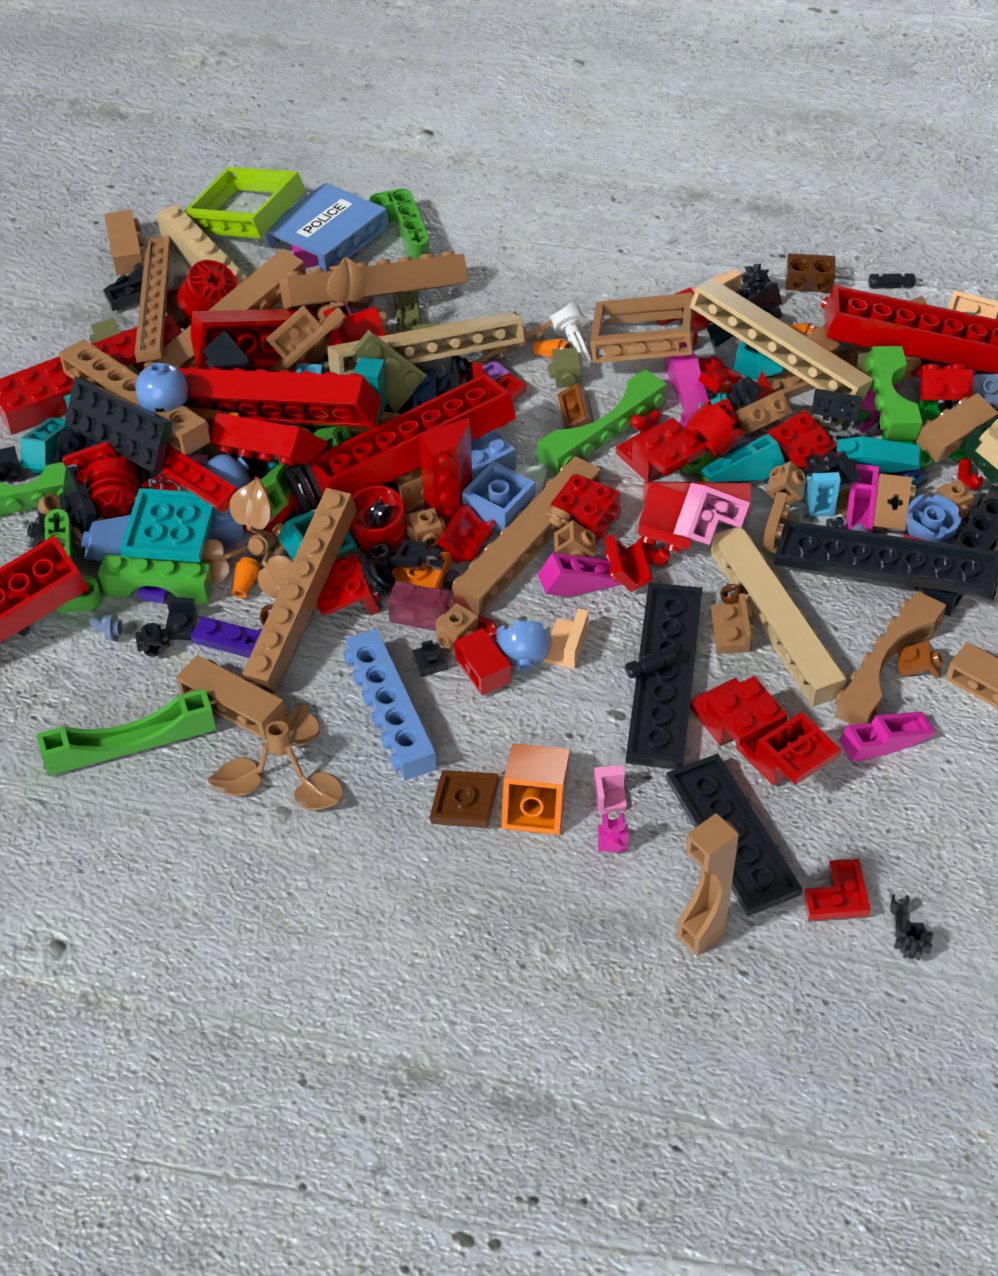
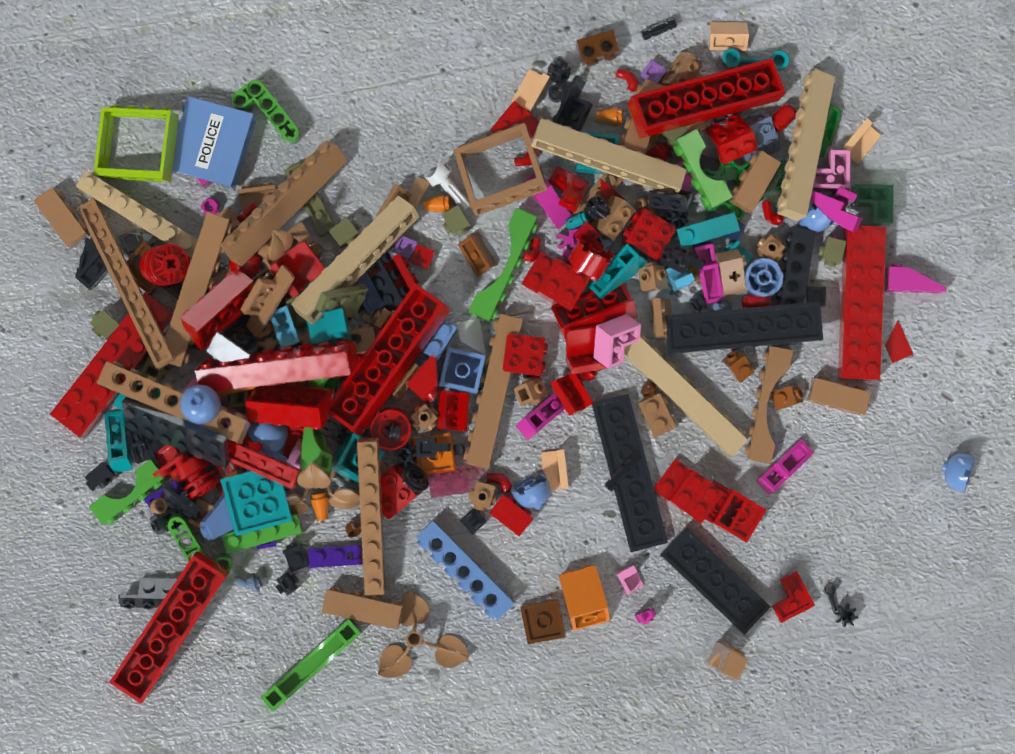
camera: 30 degrees left, 35 degrees up
(557, 517) = (513, 380): medium nougat plate -> none
(865, 608) = (738, 365): none -> dark orange bracket

